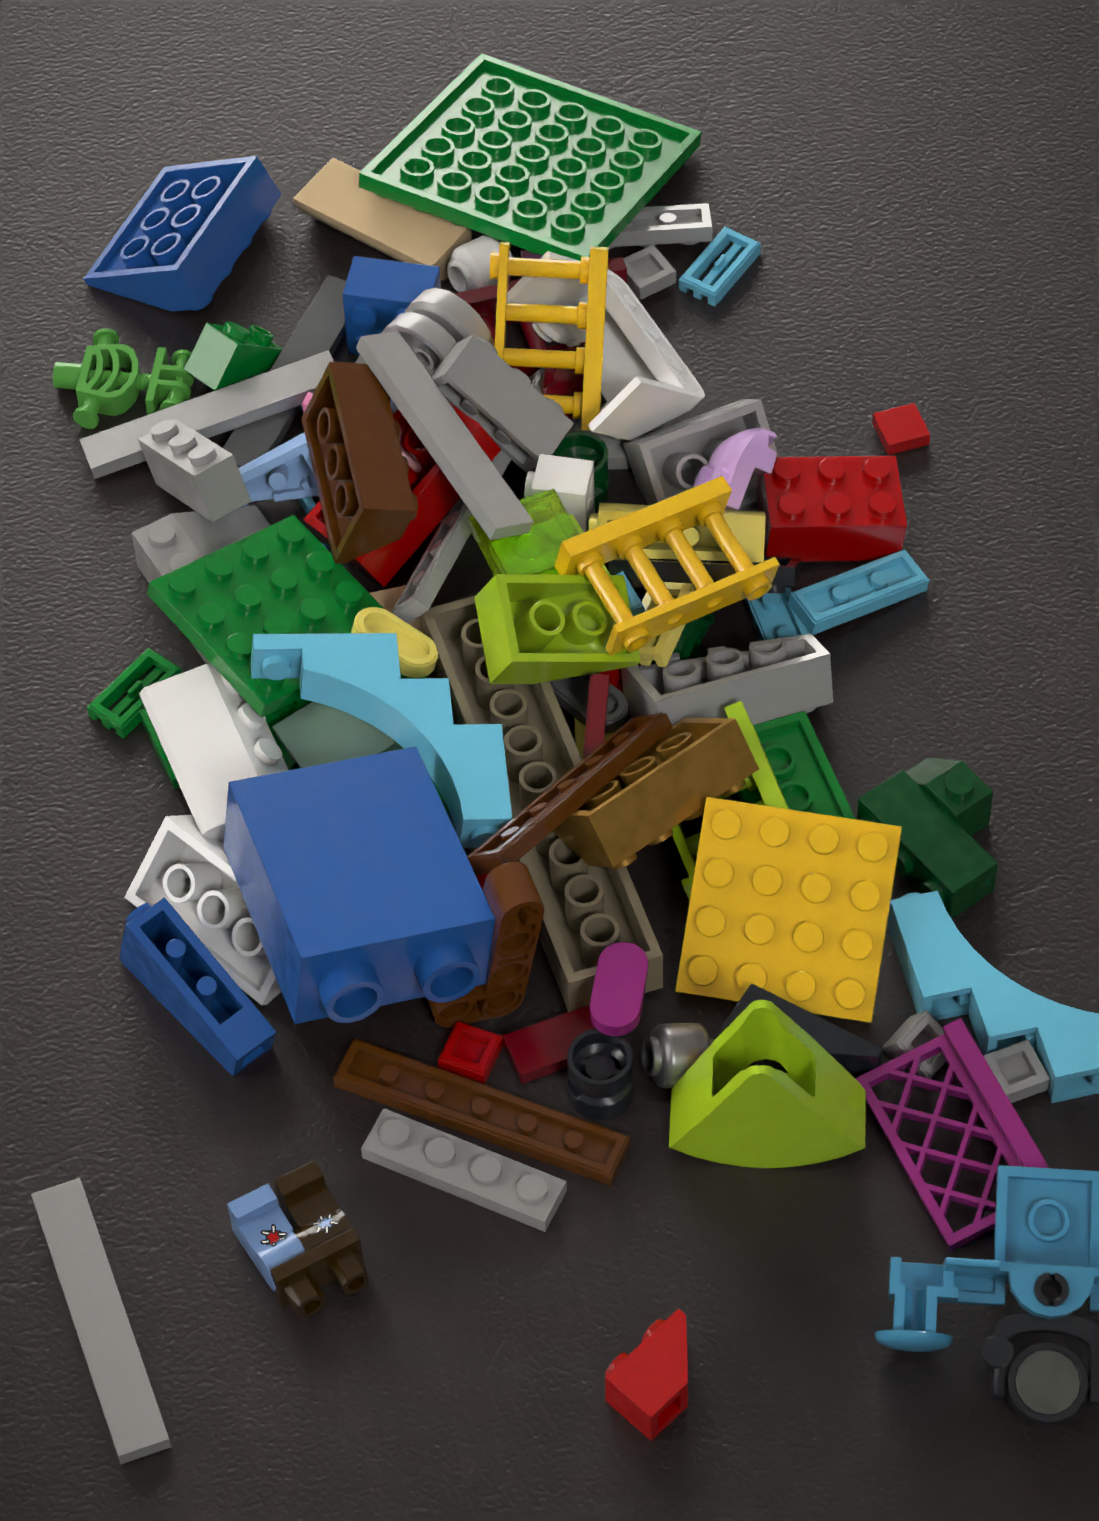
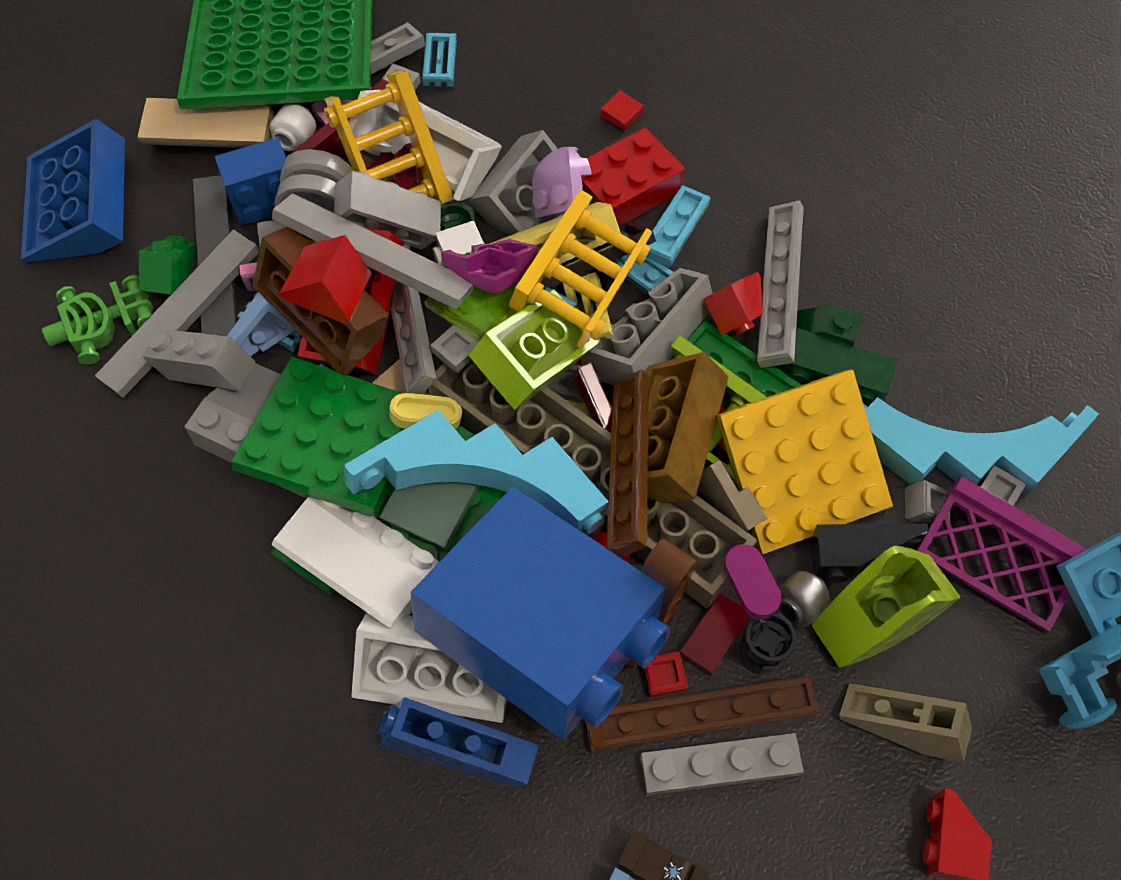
camera: 35 degrees left, 10 degrees up
(126, 713) = (267, 559): green tile -> none
(369, 440) = (328, 279): none -> red slope
(465, 584) = (454, 347): none -> light grey plate
(563, 510) = (492, 265): none -> magenta slope
(672, 914) = (721, 493): none -> dark tan slope
(706, 1239) = (914, 721): none -> dark tan slope
(851, 707) = (737, 304): none -> red slope
(929, 714) = (780, 285): none -> light grey tile

